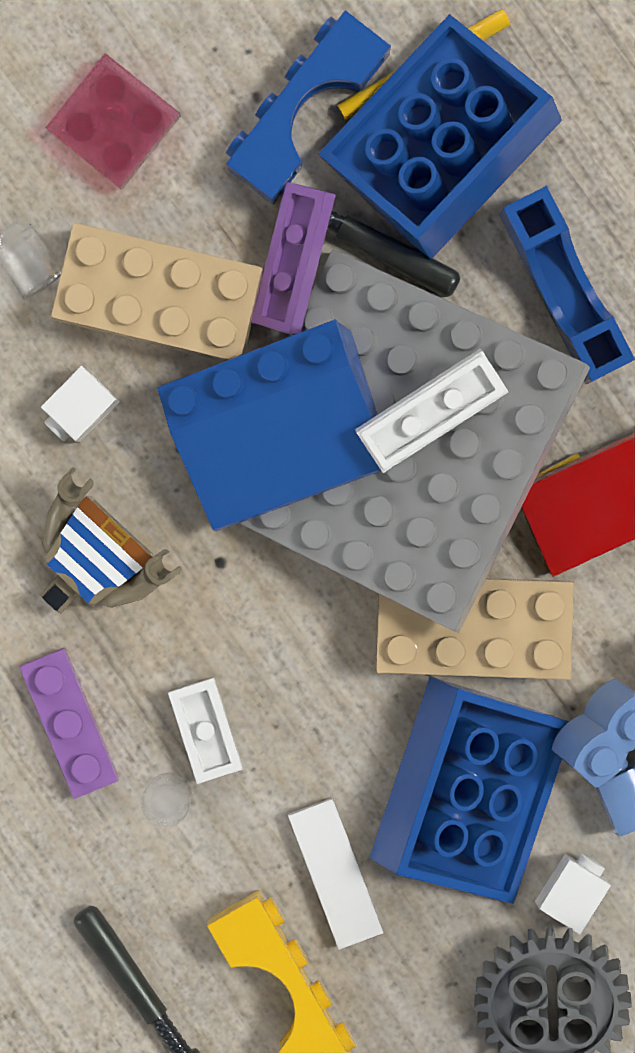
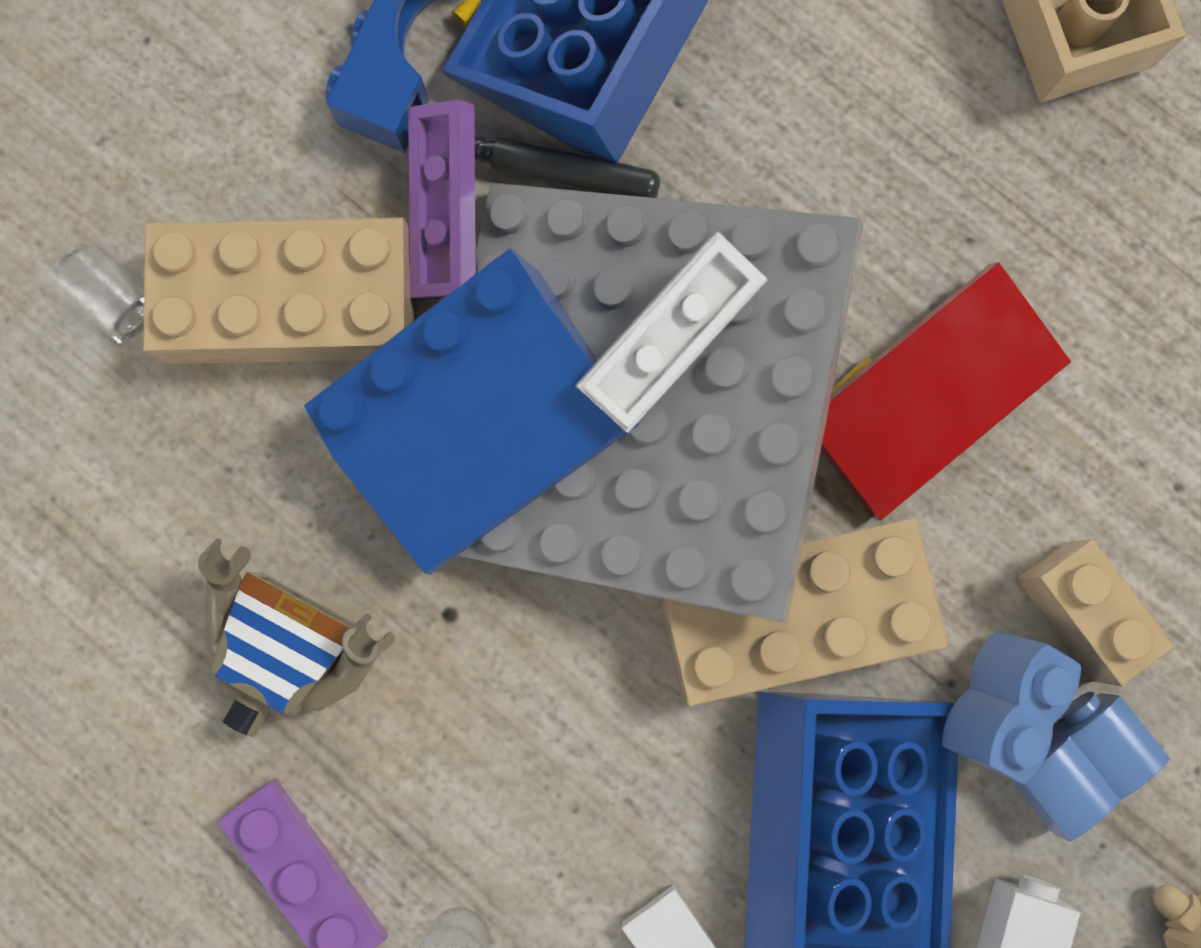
camera: 15 degrees left, 5 degrees down
(78, 406) = (214, 460): white brick -> none
(113, 121) = (177, 97): clear pink plate -> none
(205, 730) = (483, 842): white plate -> none
(561, 282) = (753, 105): blue arch -> none

